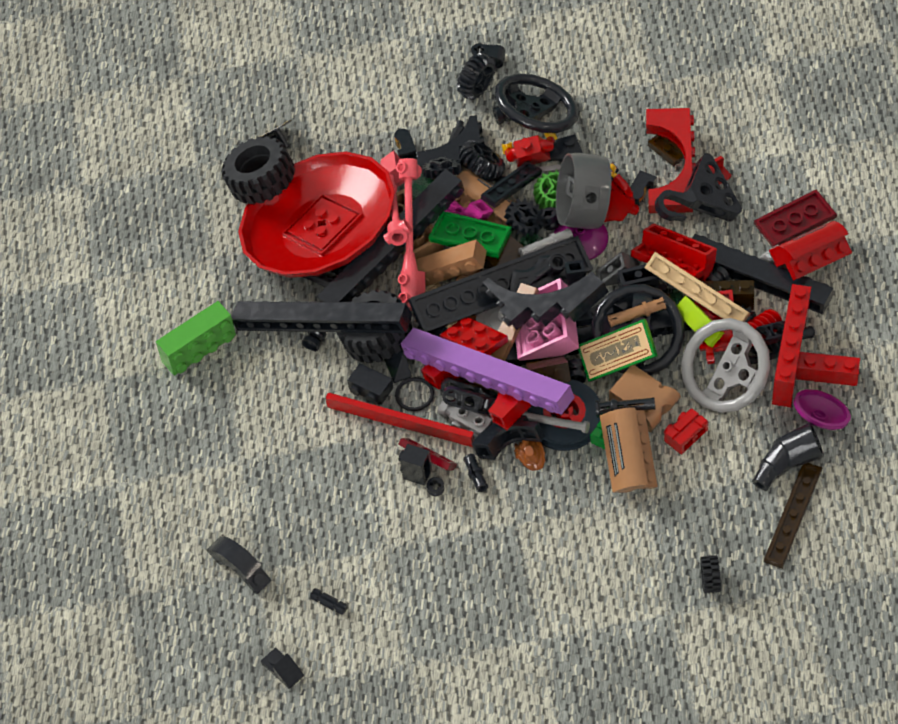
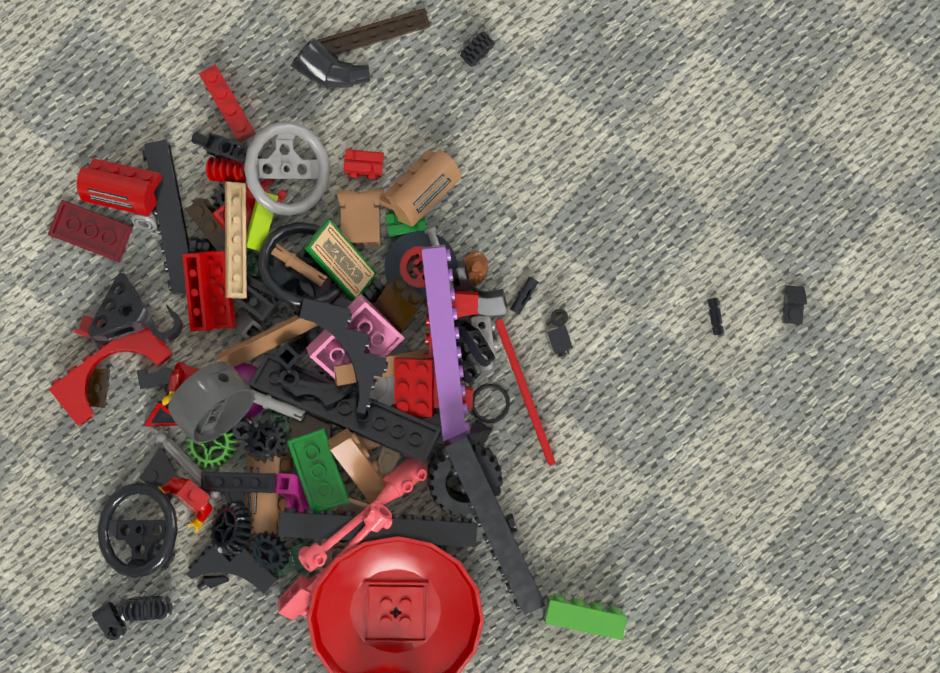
camera: 140 degrees left, 30 degrees up
(230, 553) = (745, 408): black arch -> none
(370, 384) = (512, 442): black brick -> none
(405, 144) = (256, 617): black leg -> none
(436, 458) = (538, 344): dark red tile -> none
(604, 262) = (265, 341): none -> medium nougat tile
(649, 403) = (392, 224): black pin -> none
(790, 345) = (190, 150): red arch -> none
(821, 409) = (261, 67): magenta dish -> none

